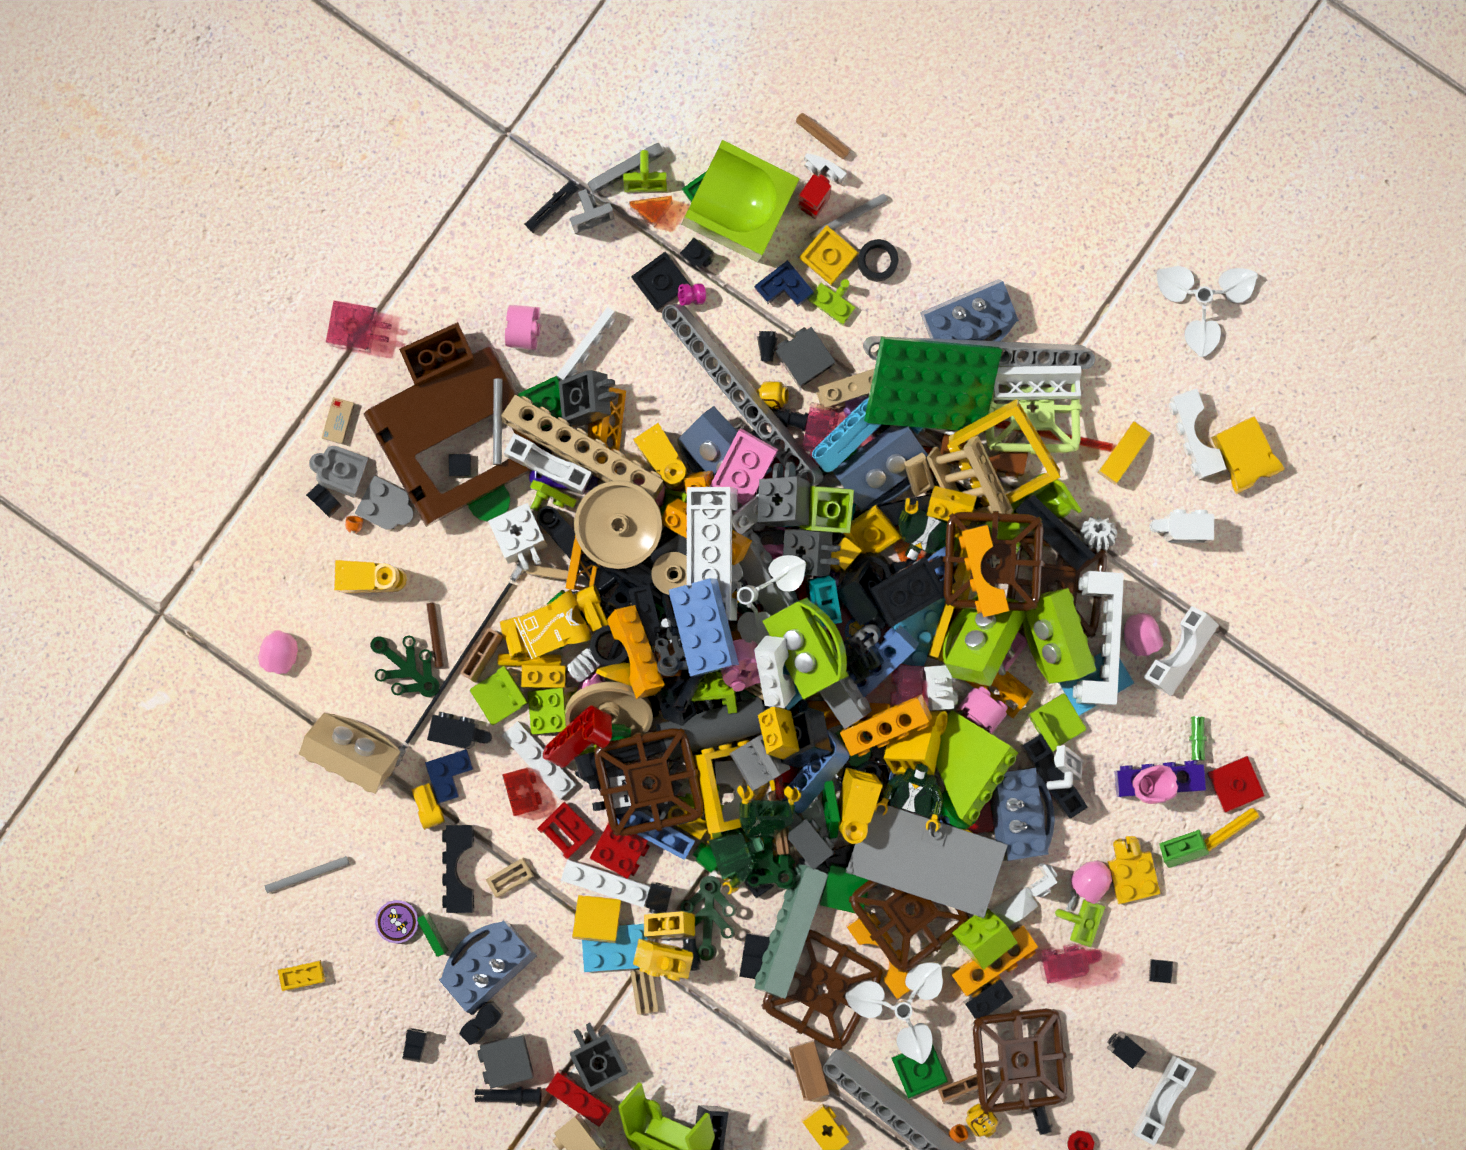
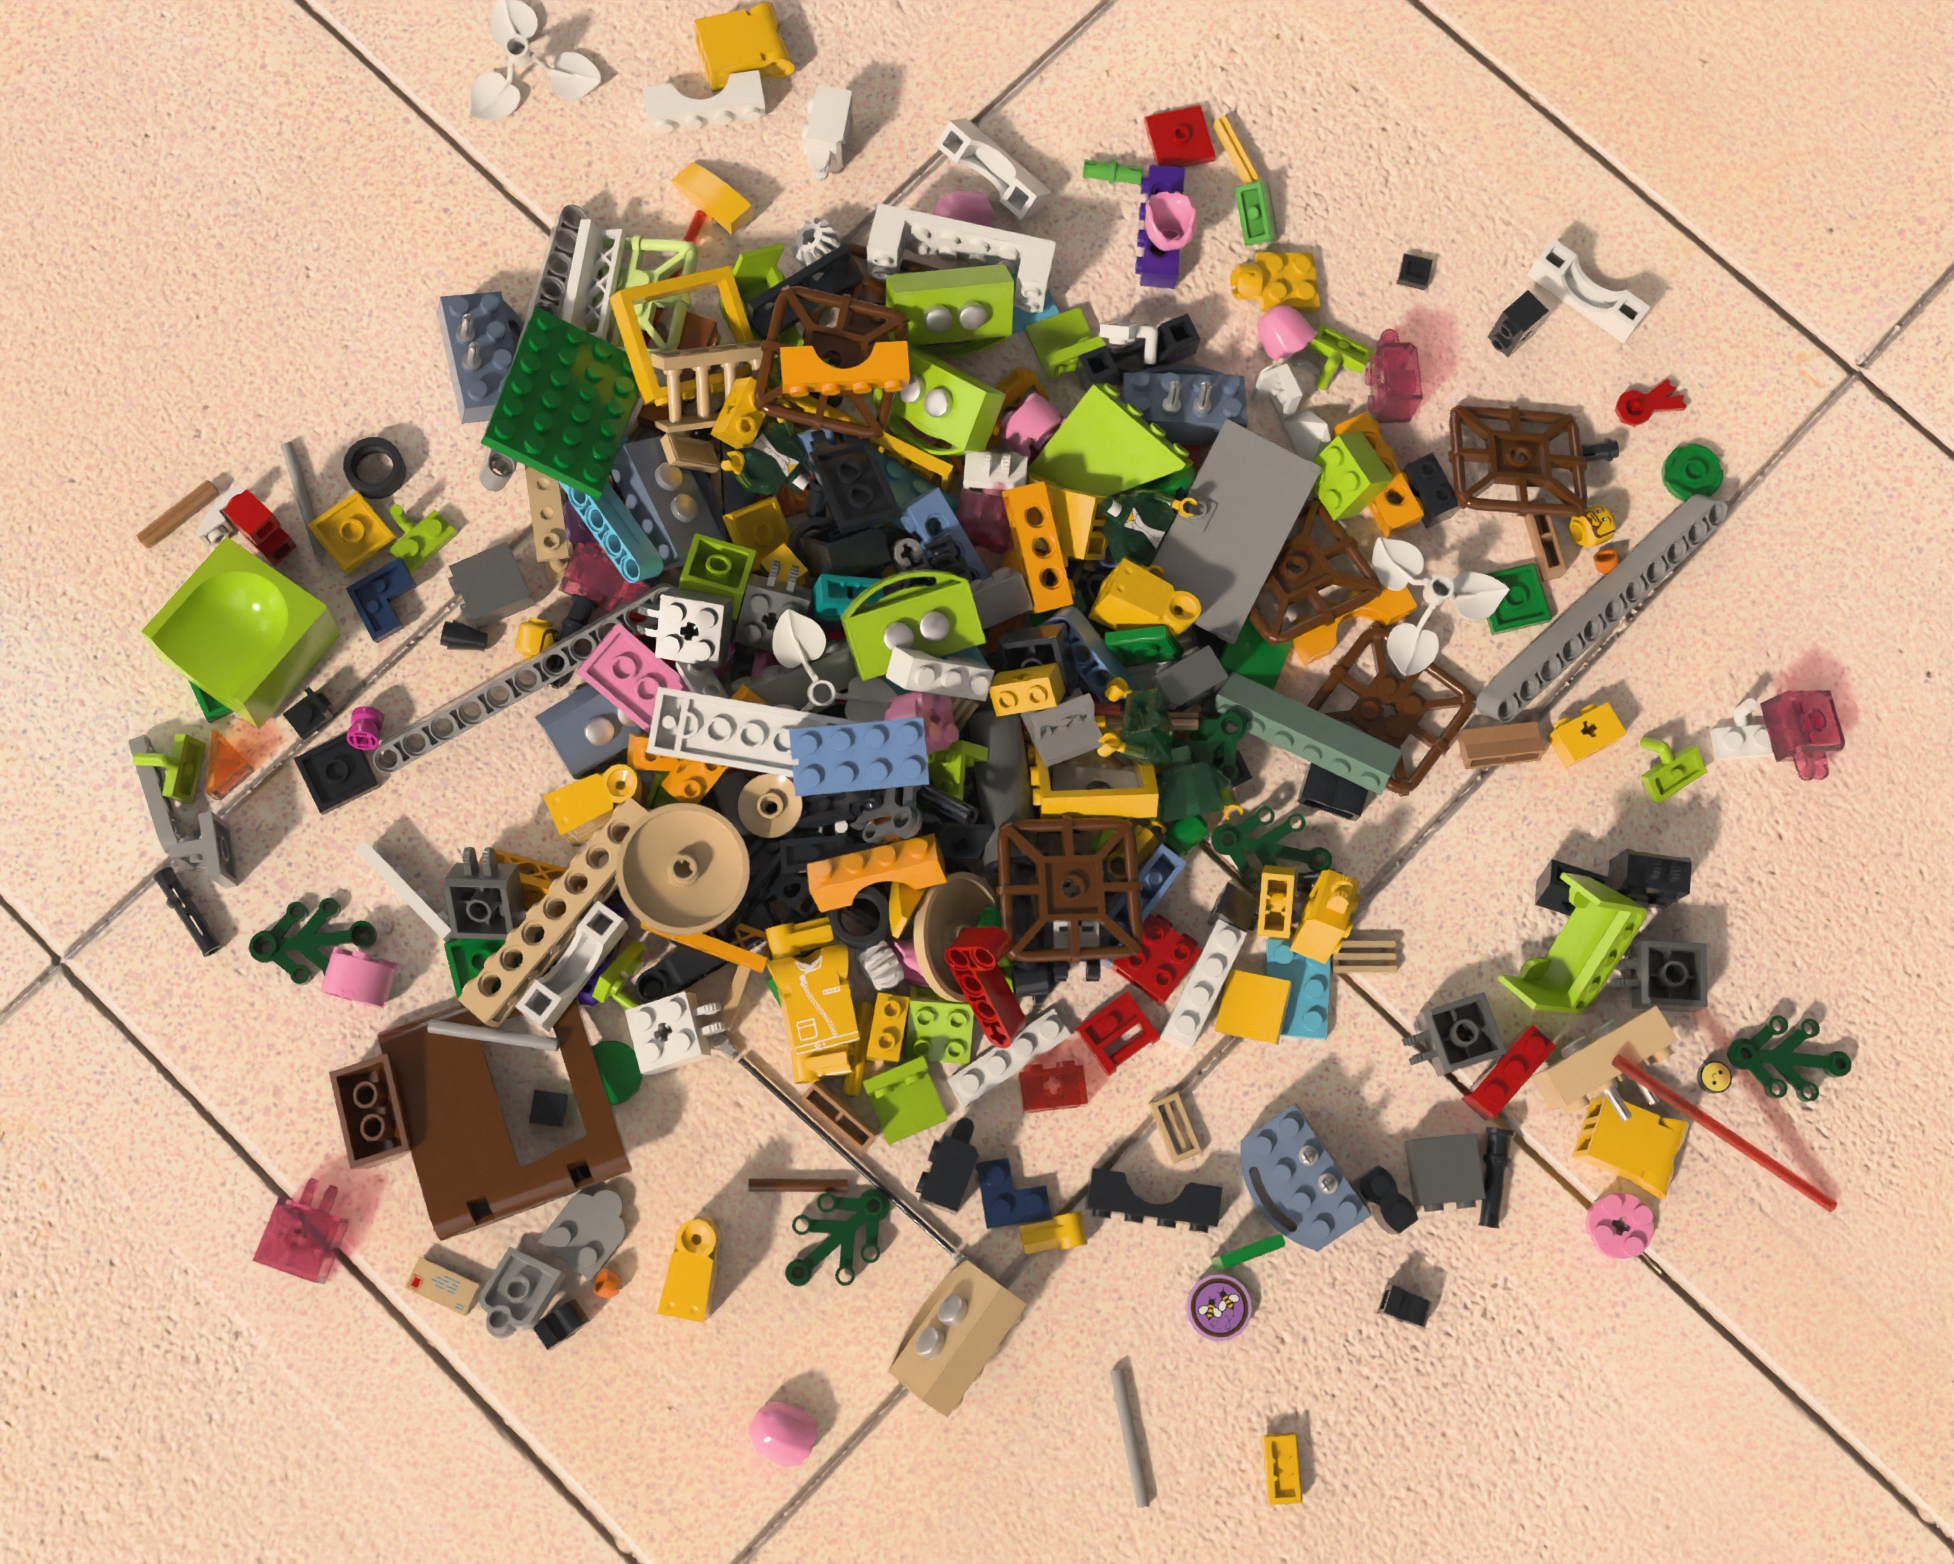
camera: 90 degrees left, 10 degrees down
(544, 287) = (307, 940): none -> dark green plant

